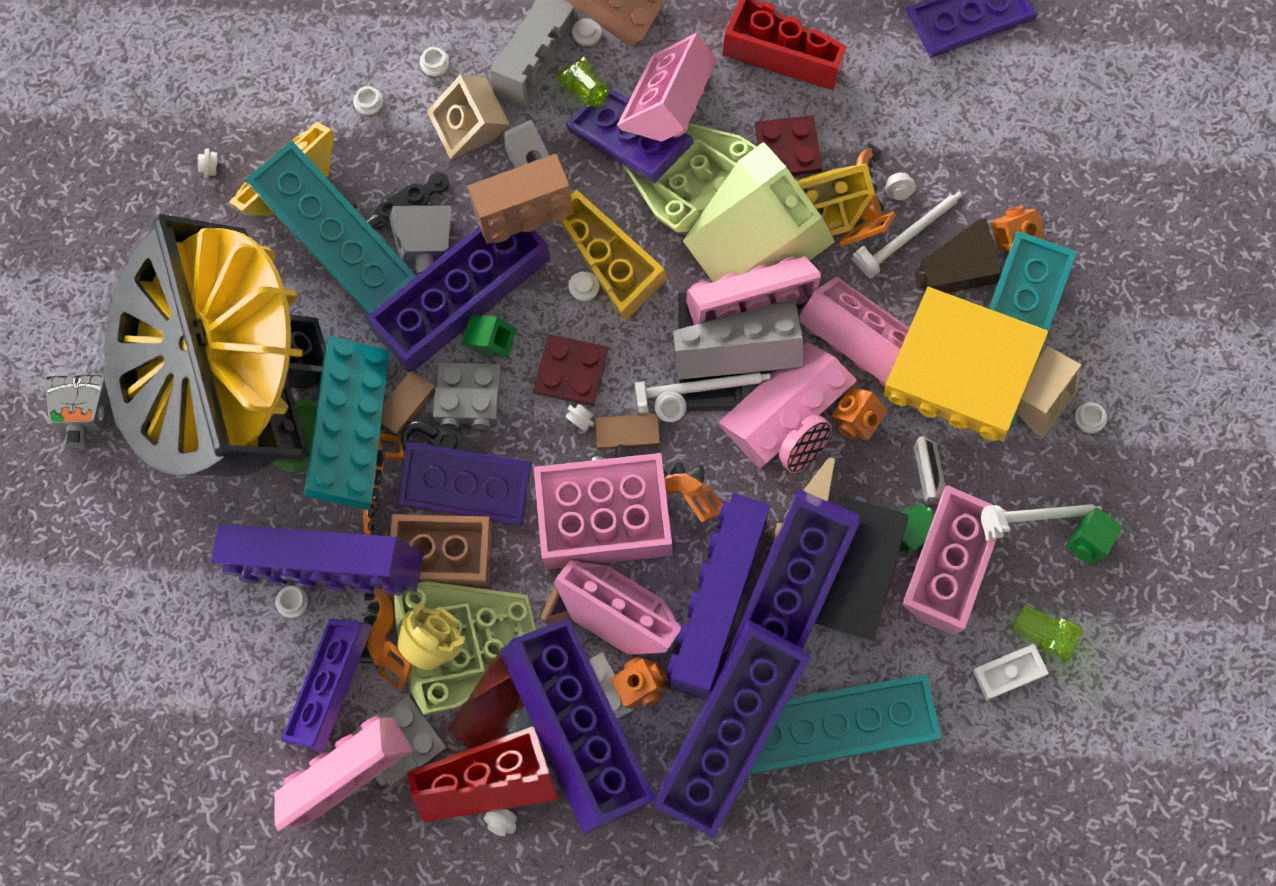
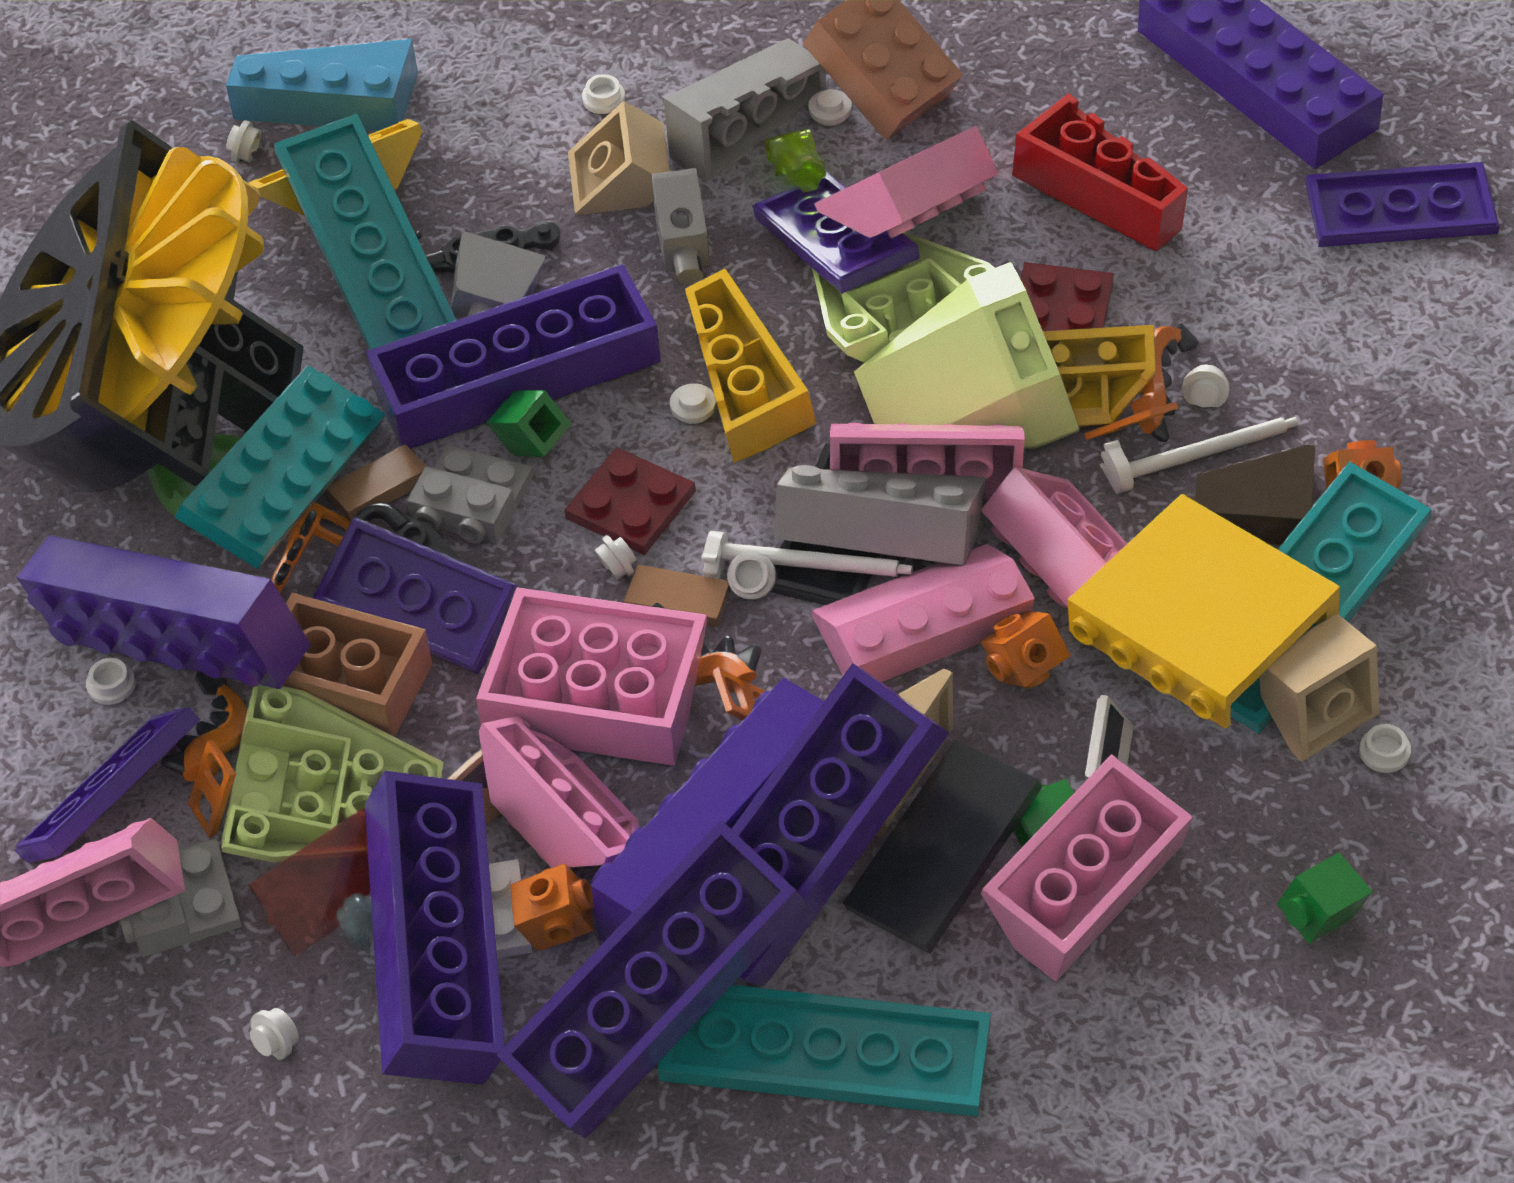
camera: 20 degrees right, 20 degrees down
(247, 106) = (325, 84): none -> dark azure wedge
(368, 101) = (492, 119): white plate -> none
(429, 637) = (270, 751): light yellow cone -> none
(484, 779) = (270, 962): red wedge -> none
(521, 199) = (635, 247): nougat brick -> none
(806, 444) = (923, 651): bright pink tile -> none
(996, 521) = (1165, 813): white piece -> none
(1010, 672) = (1124, 1050): white plate -> none
(1053, 634) = (1211, 1019): clear neon green piece -> none

